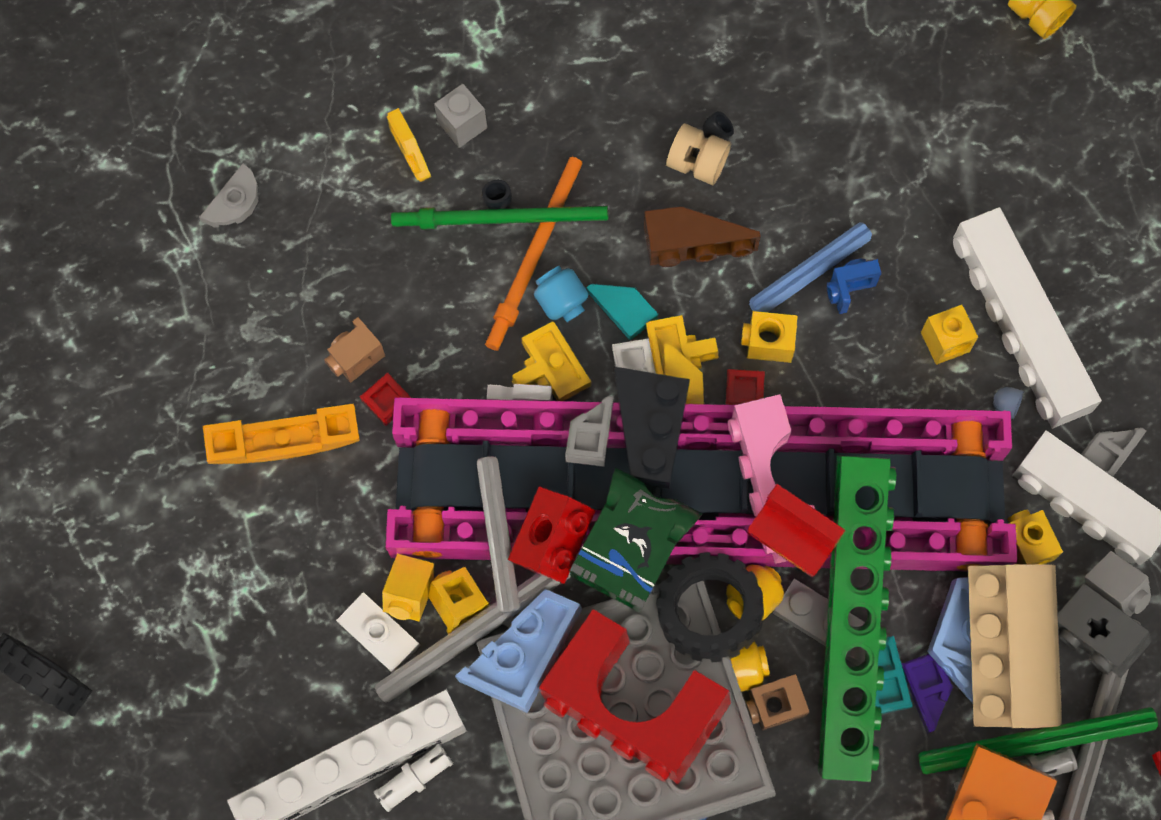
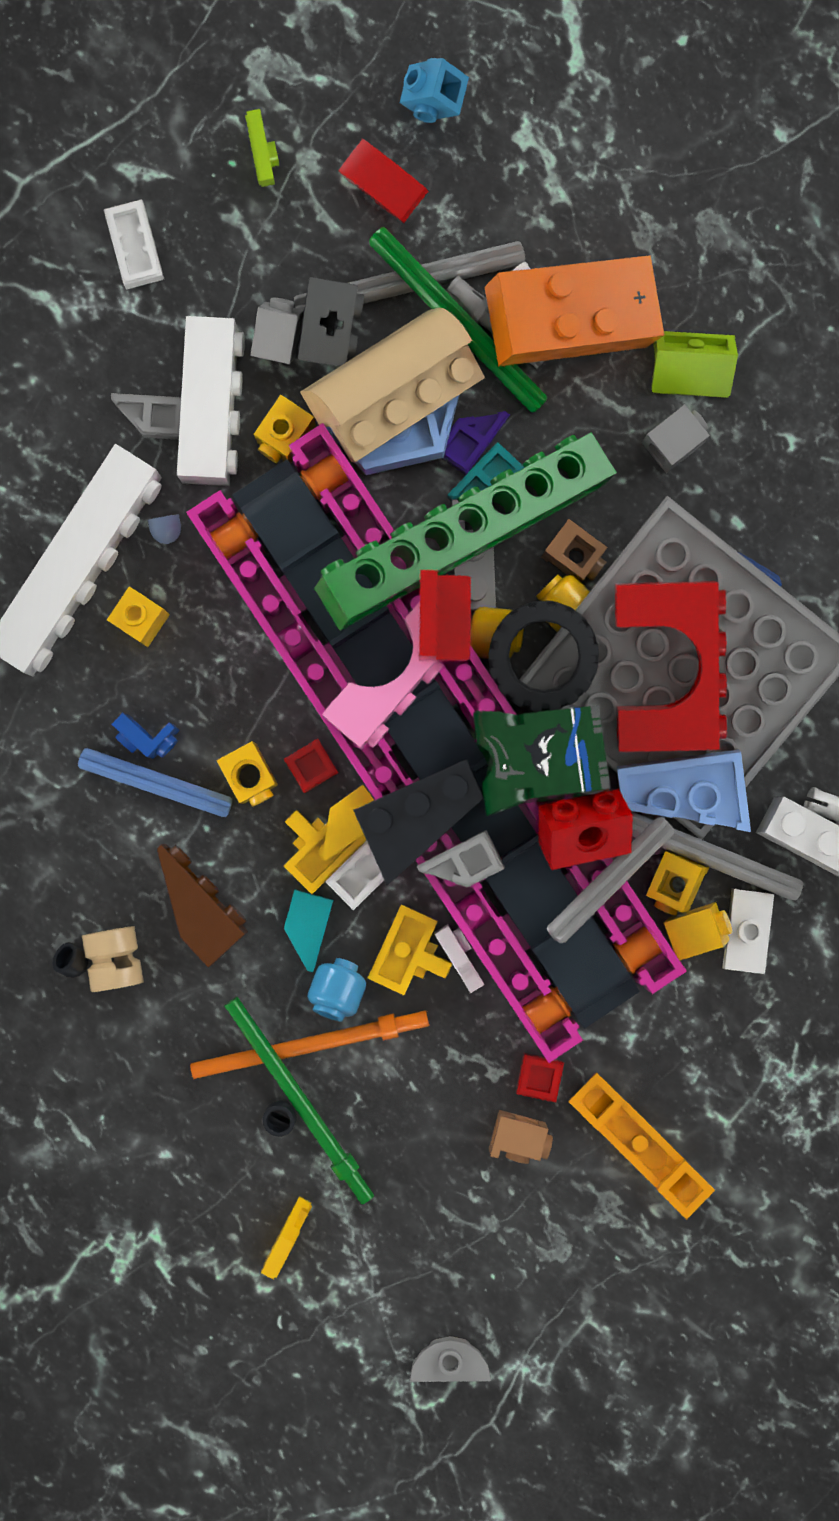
camera: 130 degrees left, 15 degrees up
(460, 115) = (224, 1210): light grey brick -> none

